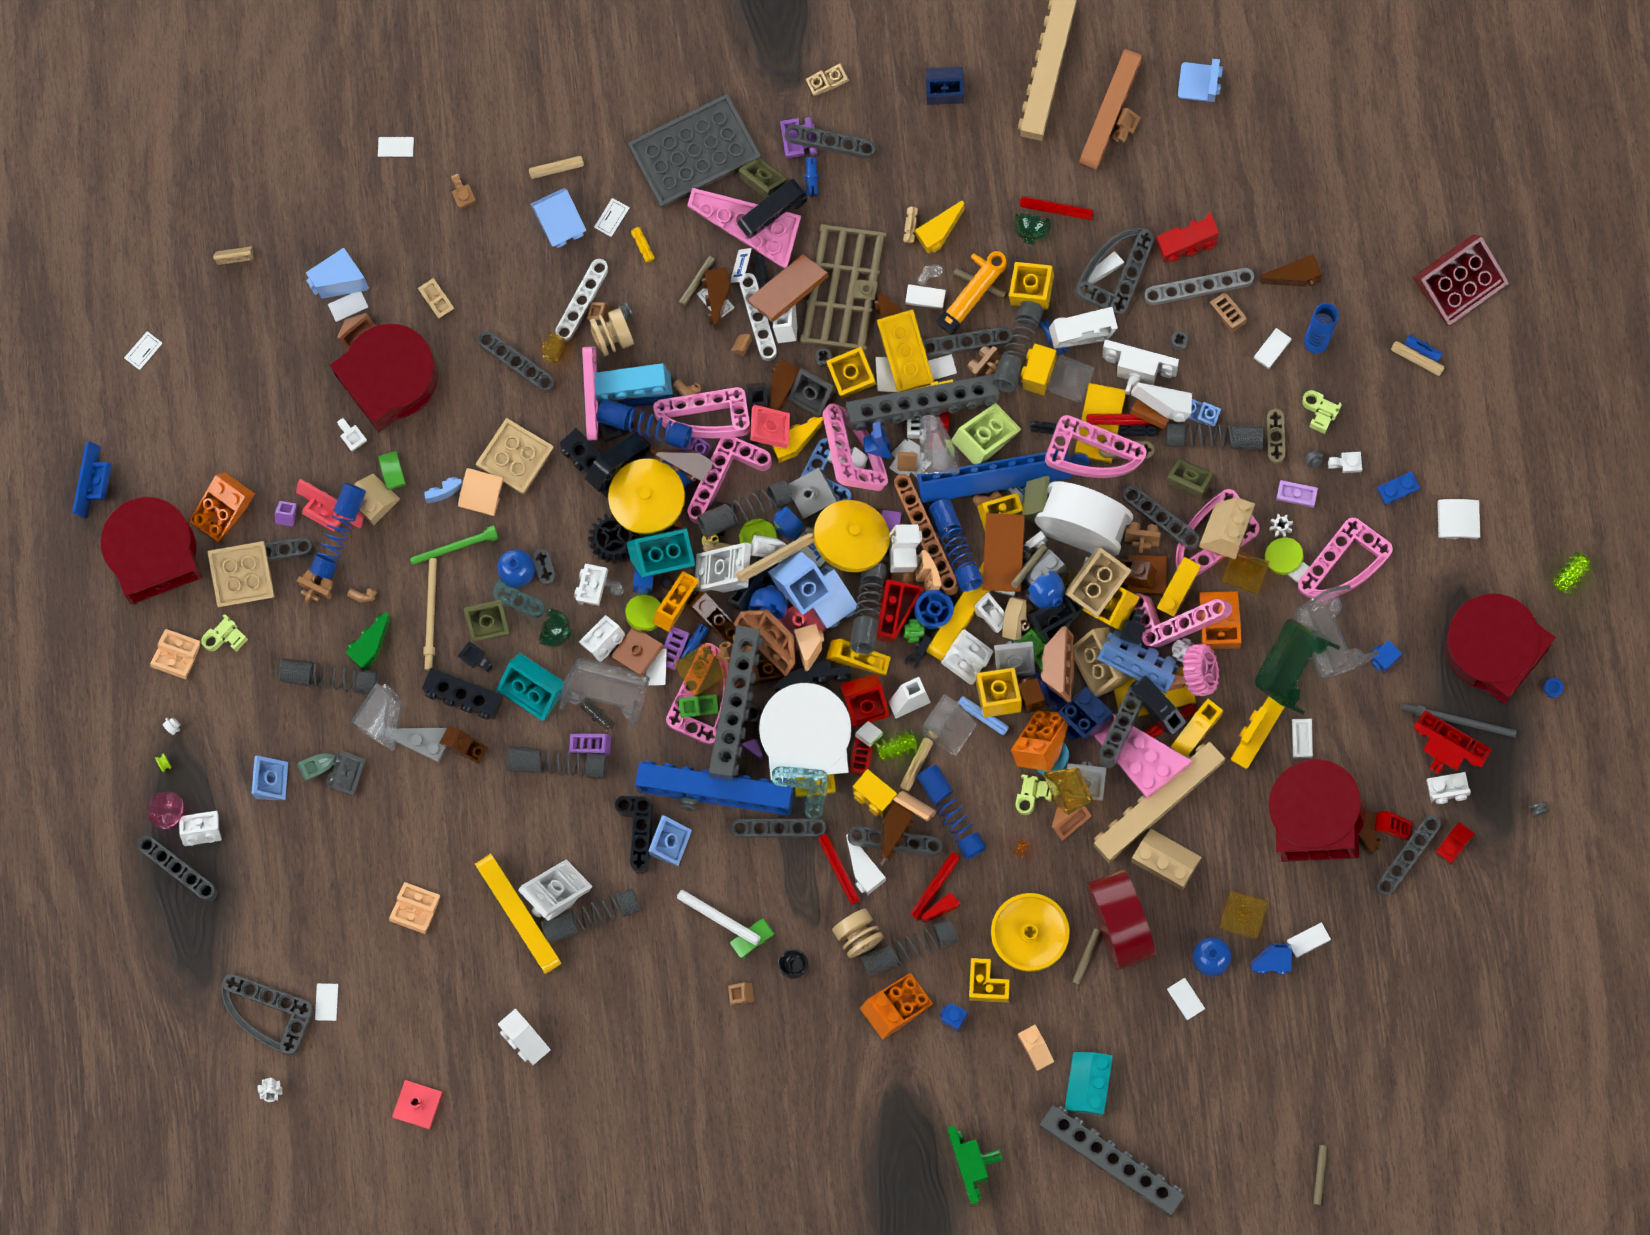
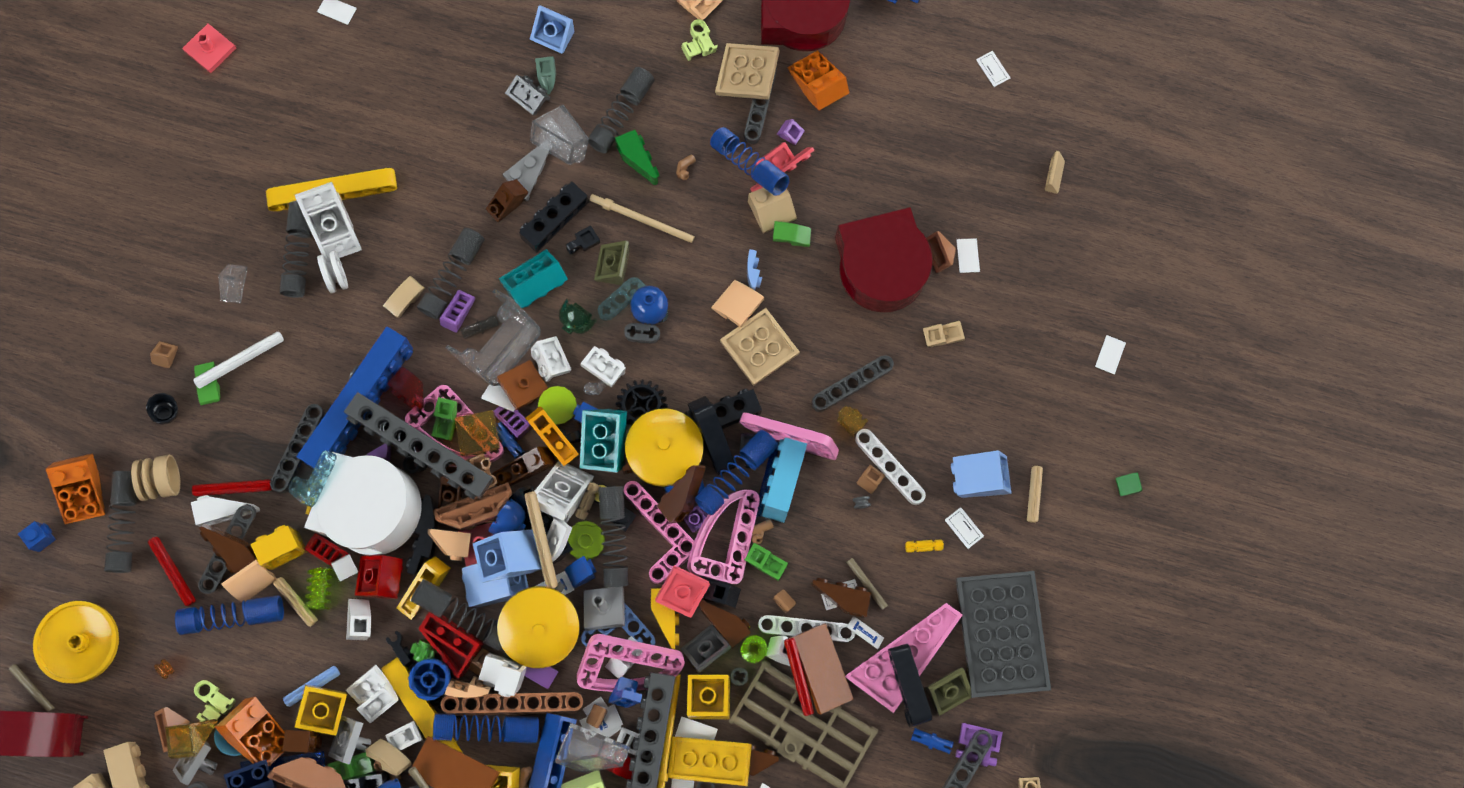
camera: 95 degrees right, 0 degrees up
(307, 582) = (706, 127): medium nougat hips -> none
(336, 276) = (999, 250): light blue slope -> none
(352, 436) = (838, 211): white plate -> none
(414, 908) = (381, 107): light nougat slope -> none
(462, 194) = (1038, 396): medium nougat plate -> none
(489, 534) = (694, 297): bright green piece -> none
(514, 90) = (1129, 484): none -> green slope
(522, 1035) = (216, 148): white brick -> none
(596, 797) = (404, 296): none -> tan slope
(600, 867) = (332, 272): none -> white wheel
(611, 332) = (843, 482): tan wheel -> none
(638, 835) = (351, 319): black beam -> none
(646, 963) = (232, 283): none -> clear slope
(669, 841) = (331, 344): light blue slope -> none
(682, 751) = (409, 387): none -> clear red slope
(713, 372) = (766, 562): none -> bright green slope
(761, 271) = (851, 650): black axle -> none
(795, 350) = (753, 640): none -> clear neon green piece
(802, 302) = (799, 677): none -> red axle
(942, 907) = (146, 571): red slope -> none
(948, 725) = (313, 645): clear slope -> none
(984, 988) = (45, 577): yellow brick -> none

